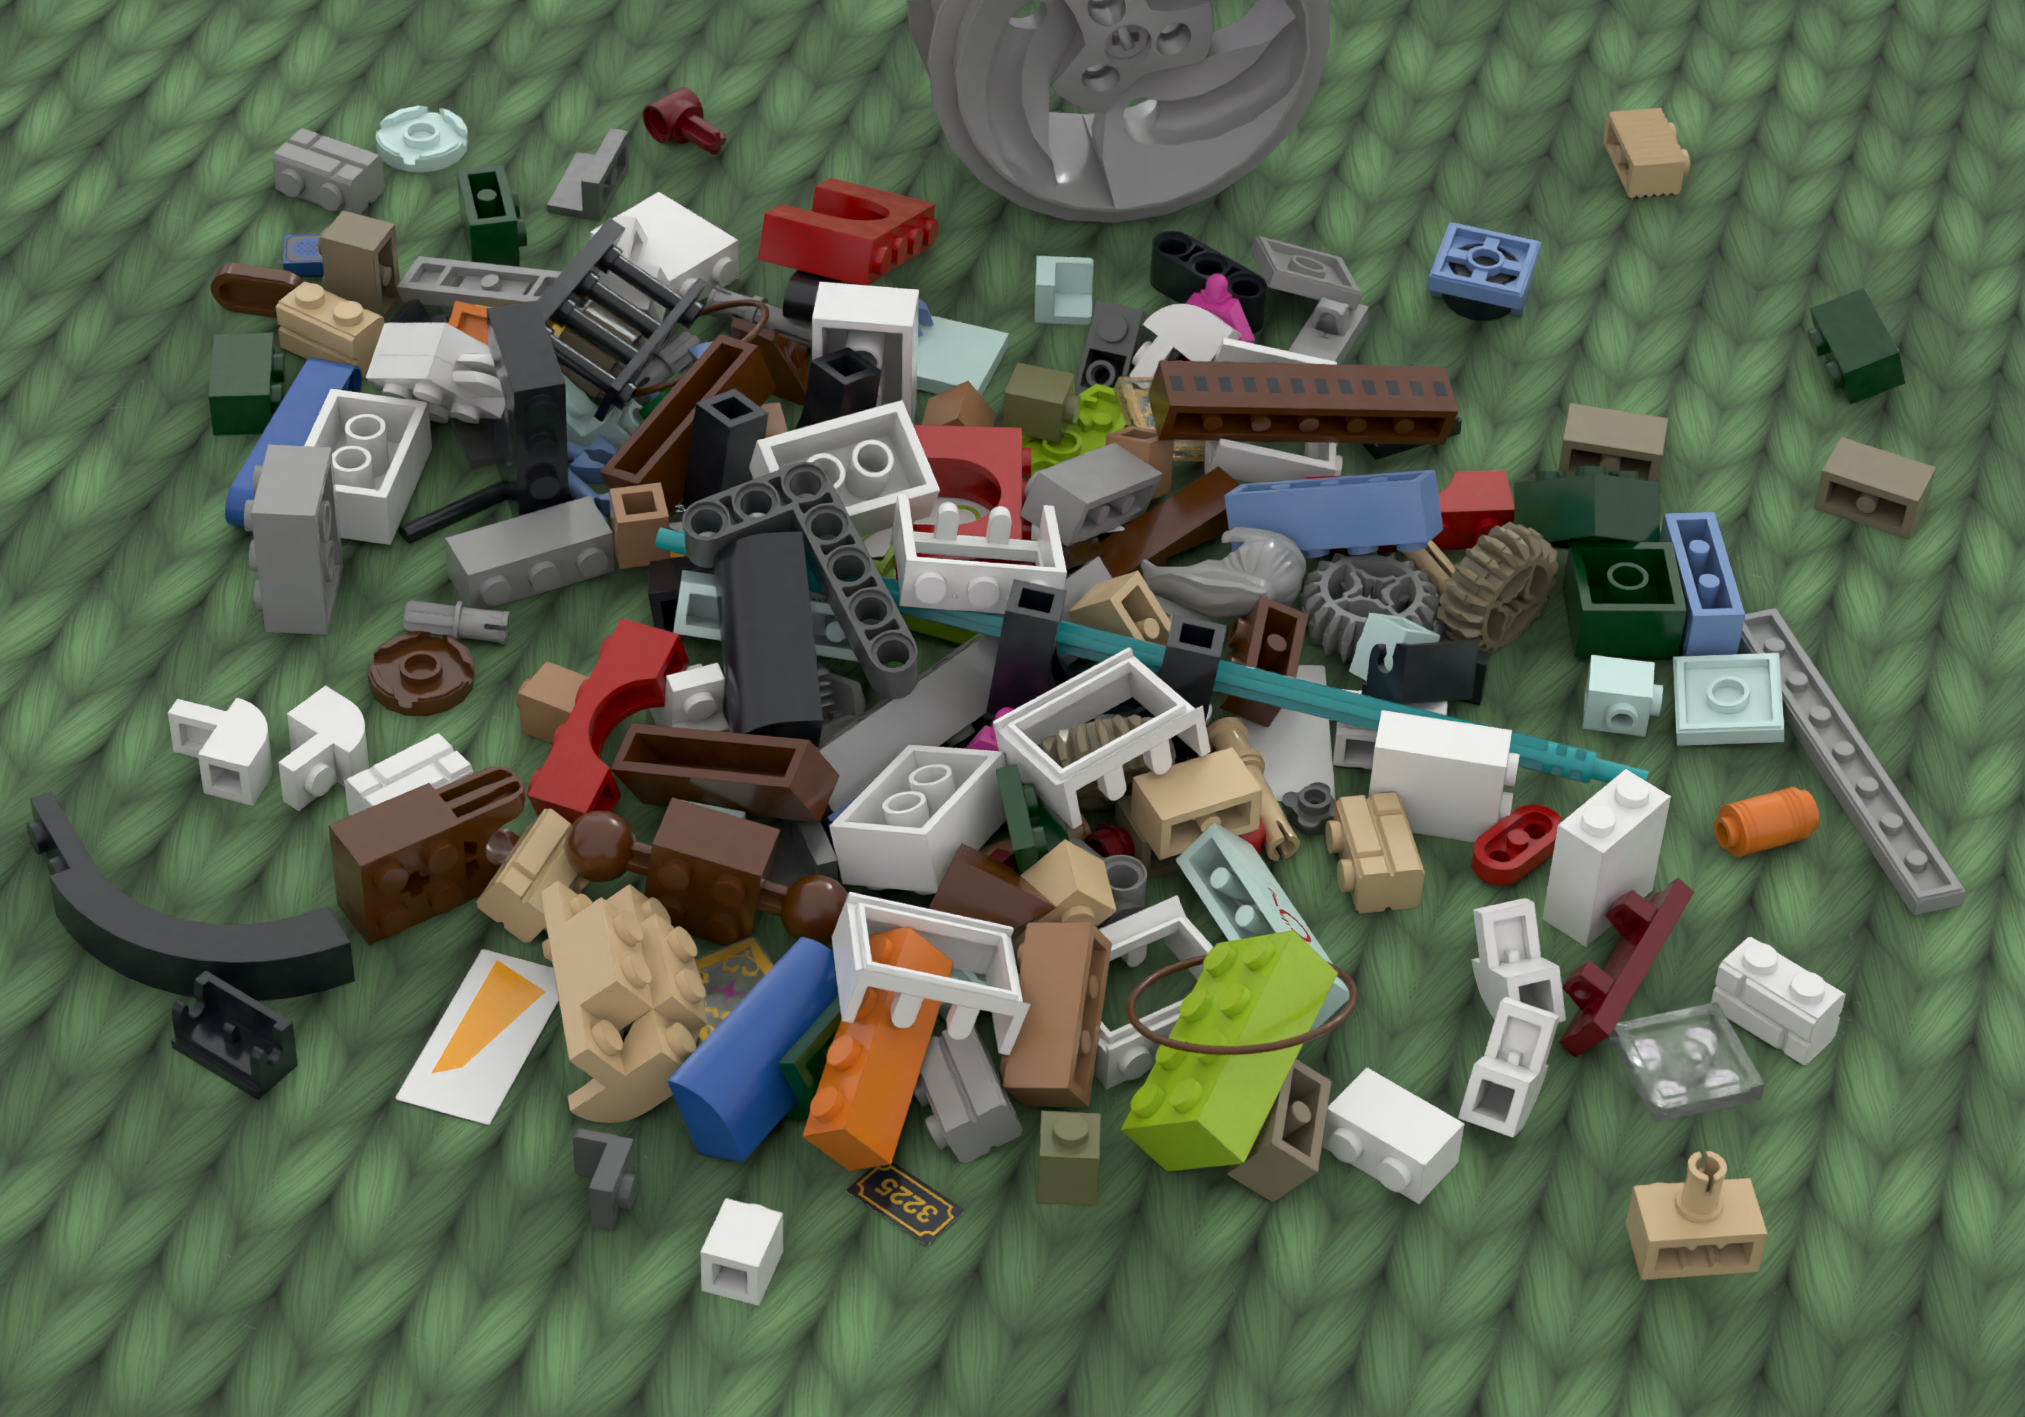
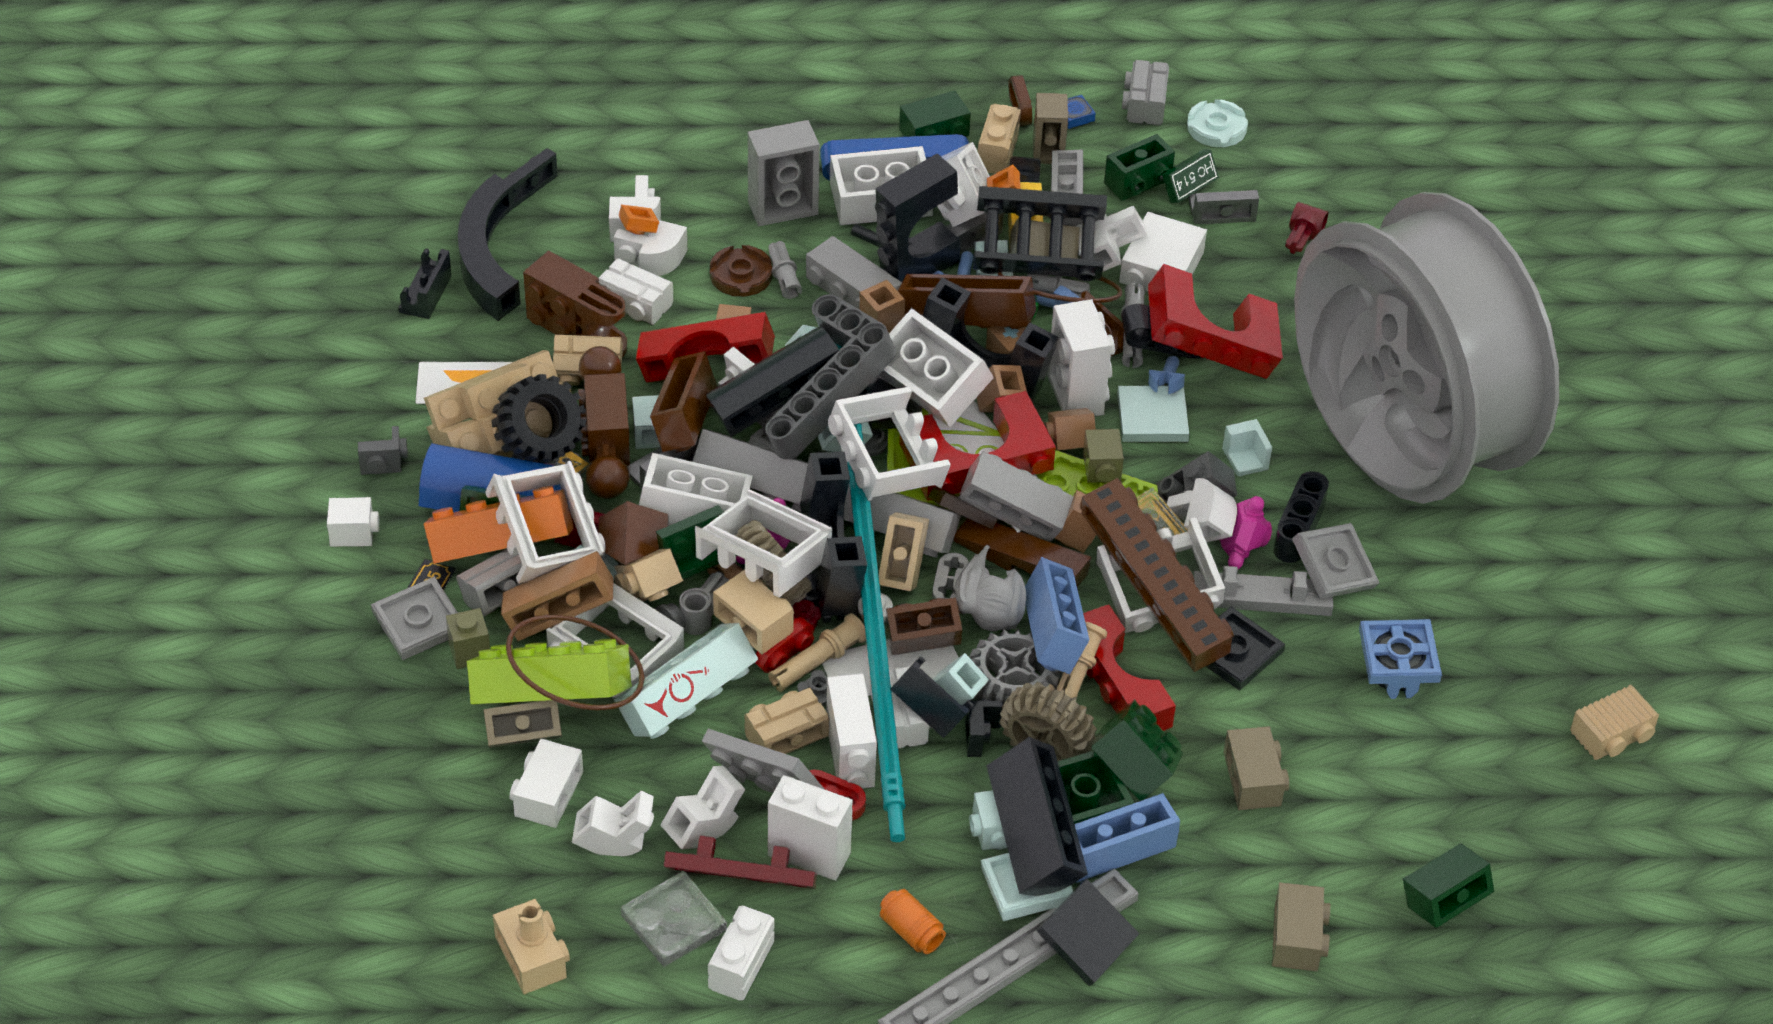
camera: 70 degrees right, 5 degrees up
(287, 726) = (638, 219): none -> orange plate
(526, 184) = (1190, 176): none -> dark green tile
(714, 922) = (561, 407): none -> black tyre
(980, 1221) = (415, 617): none -> light grey tile
(1485, 871) = (755, 762): none -> light grey plate
(1675, 632) = (1036, 818): none -> black brick
(1836, 664) = (1087, 932): none -> black tile

